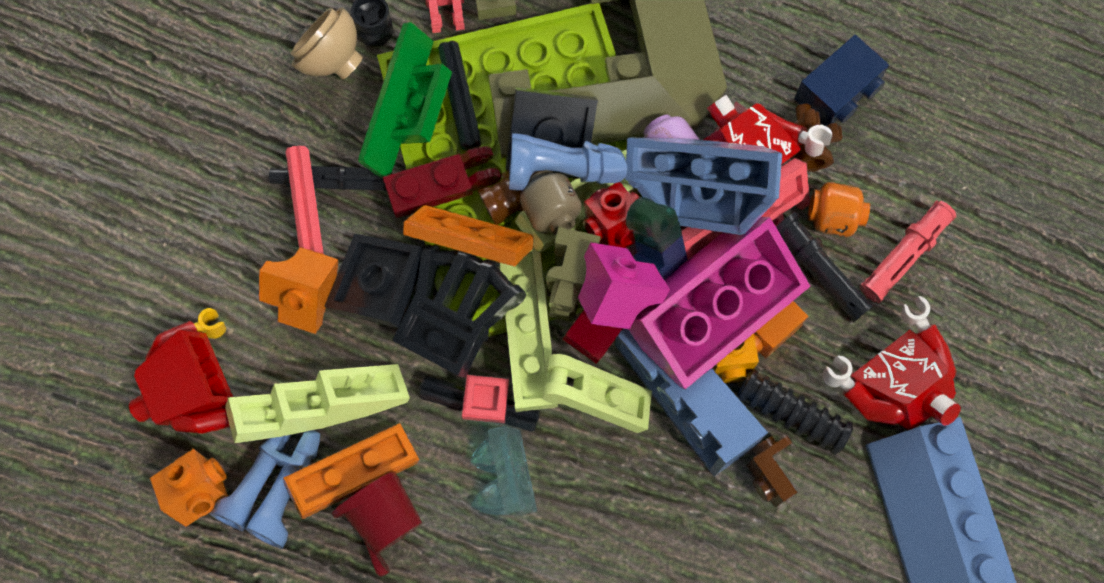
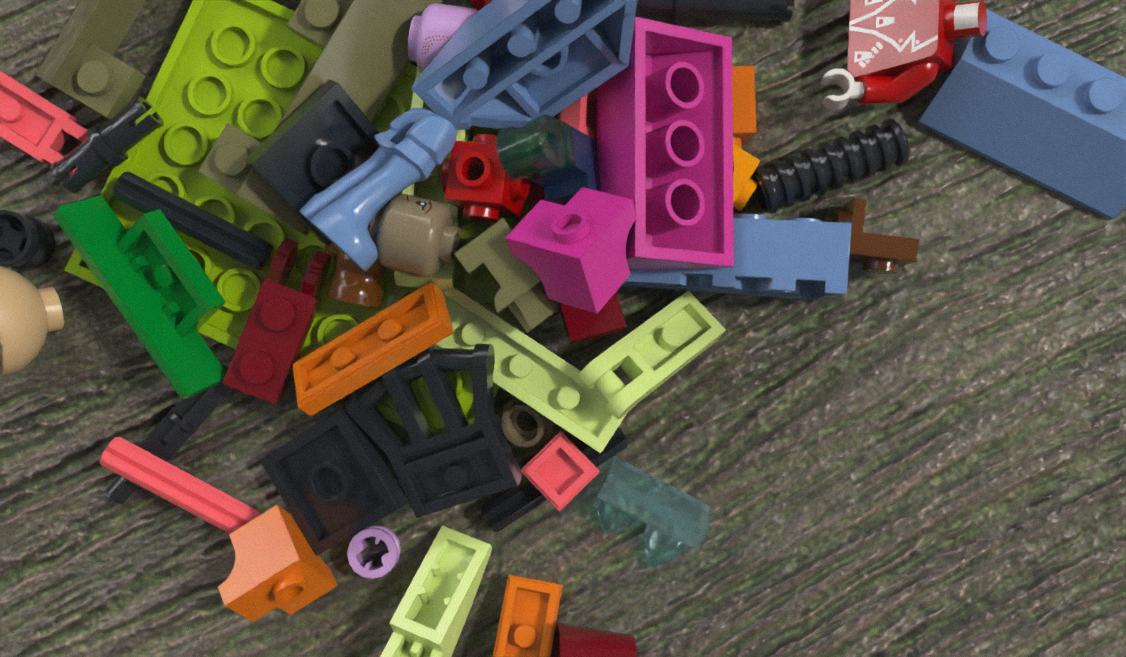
camera: 45 degrees left, 15 degrees up
(348, 326) = (359, 543): none -> lavender bush
(463, 22) = (107, 145): none -> black pin
(490, 358) = (519, 430): none -> dark tan plate

